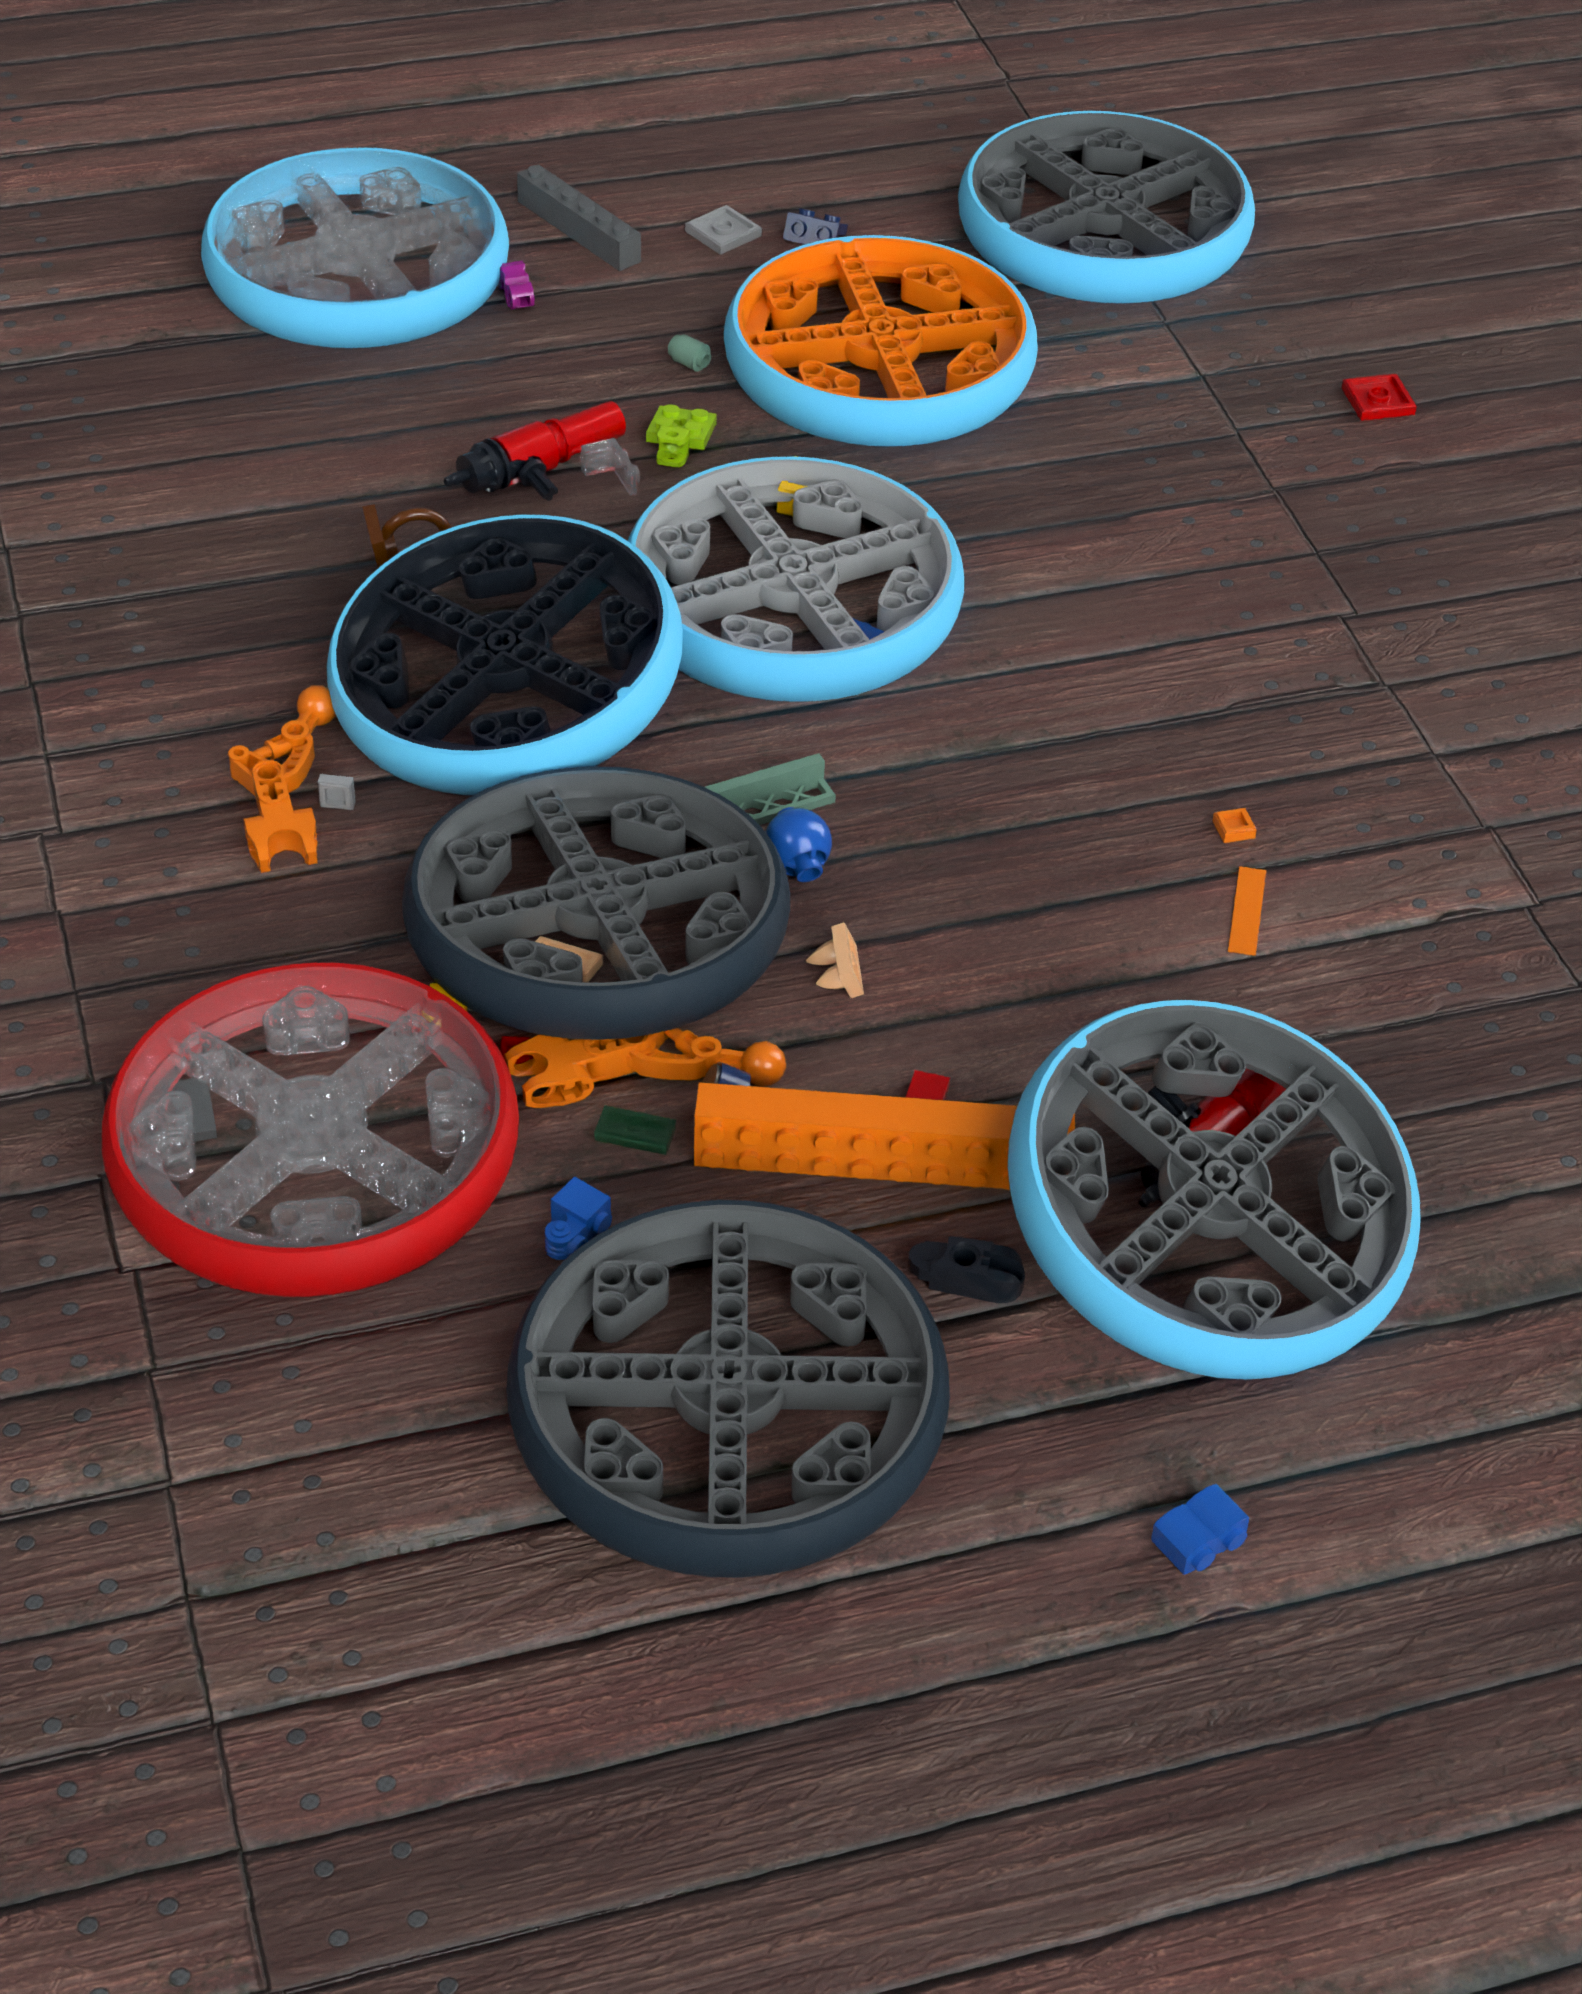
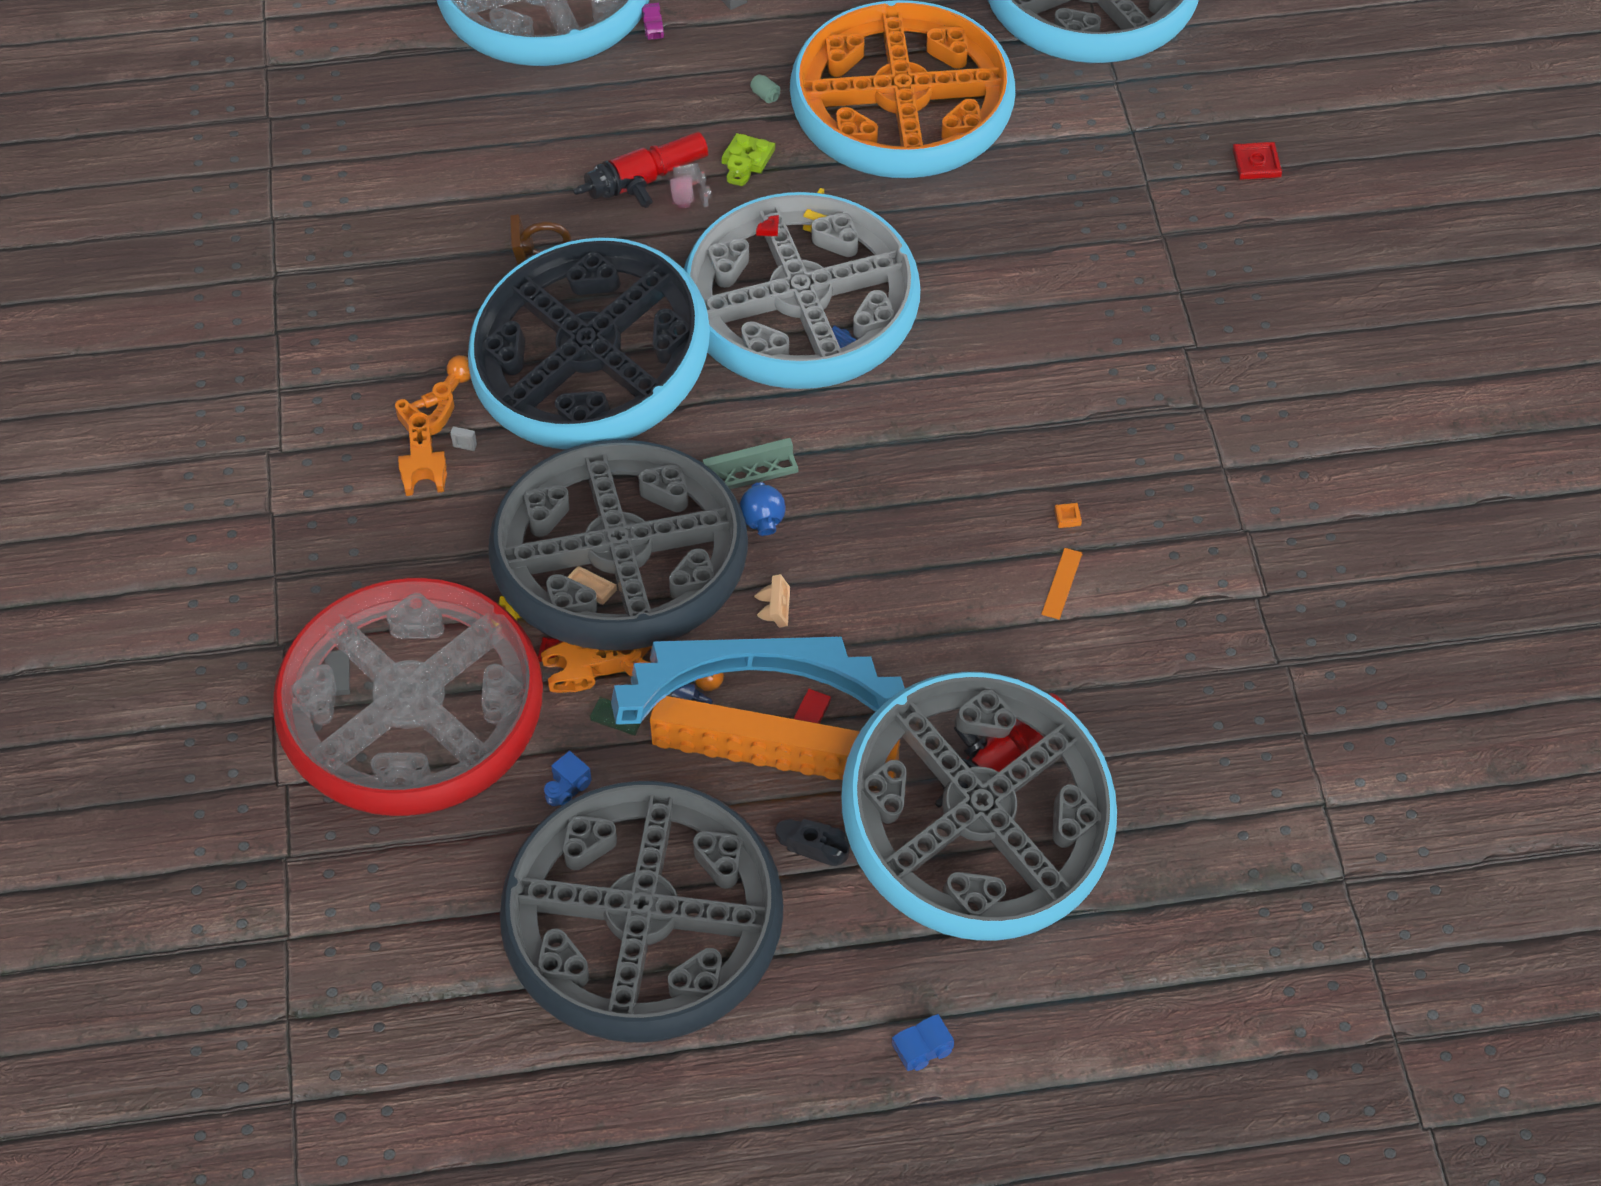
camera: 10 degrees right, 10 degrees up
(598, 475) = (682, 192): none -> clear pink bracket
(727, 1038) = (683, 662): none -> dark azure arch
(737, 498) = (768, 227): none -> red tile

